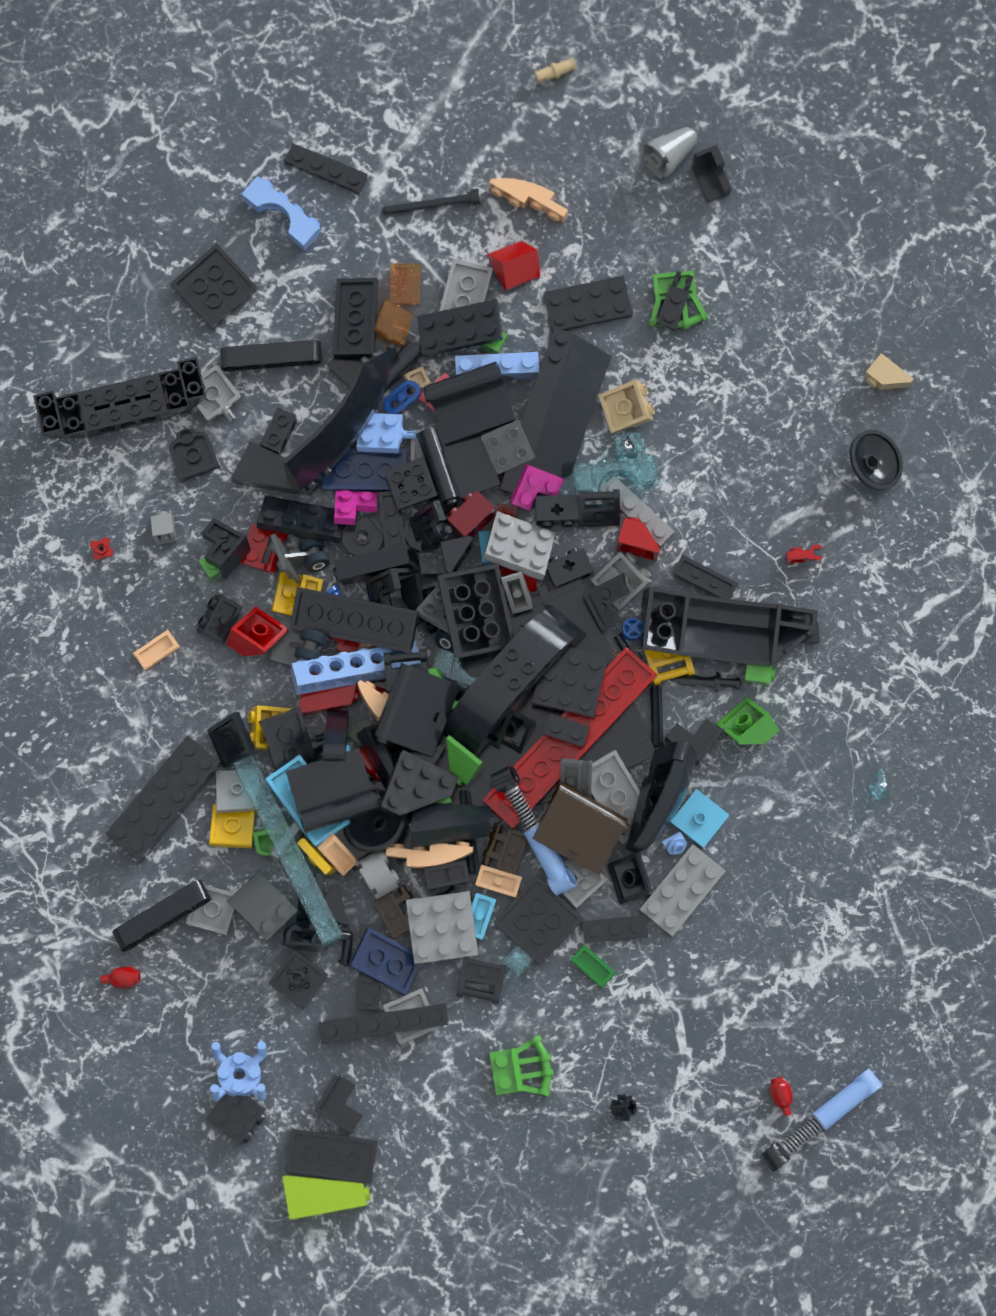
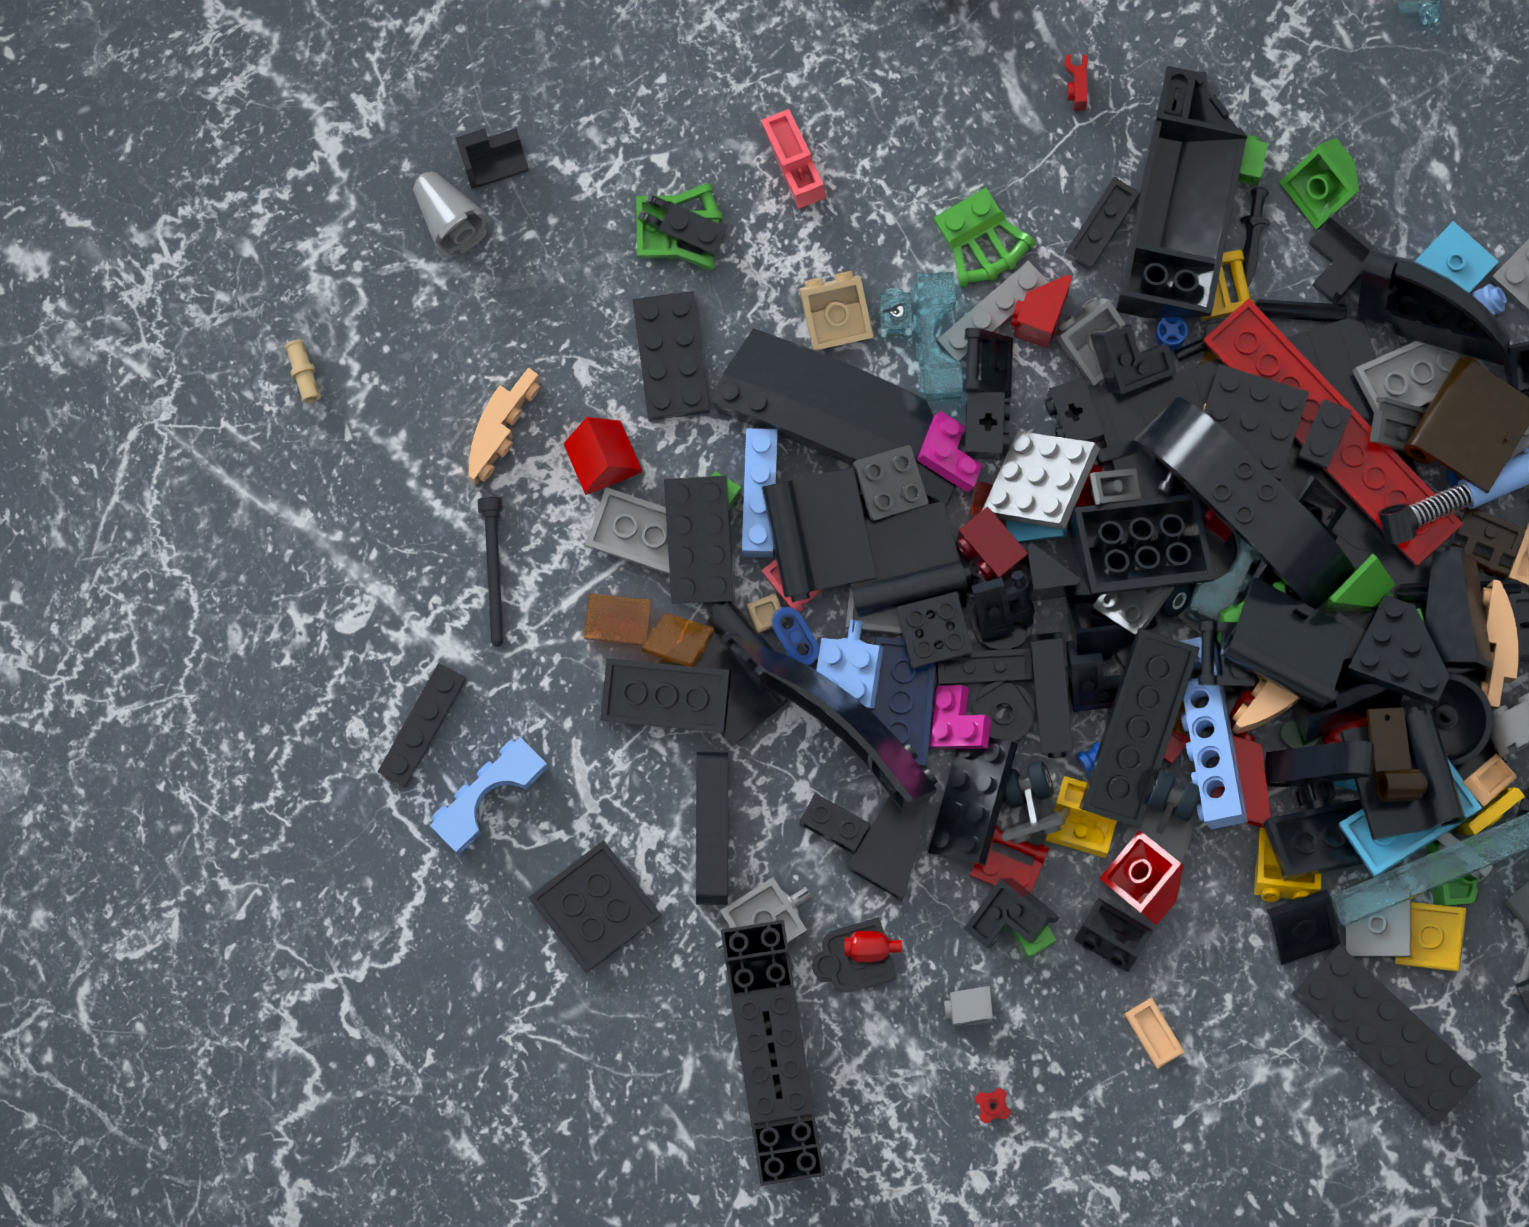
camera: 80 degrees left, 0 degrees up
(197, 458) = (870, 946): none -> red plant
(343, 781) = (1391, 761): none -> dark brown door
(699, 493) = (973, 220): none -> bright green plate
(730, 371) = (794, 159): none -> coral slope

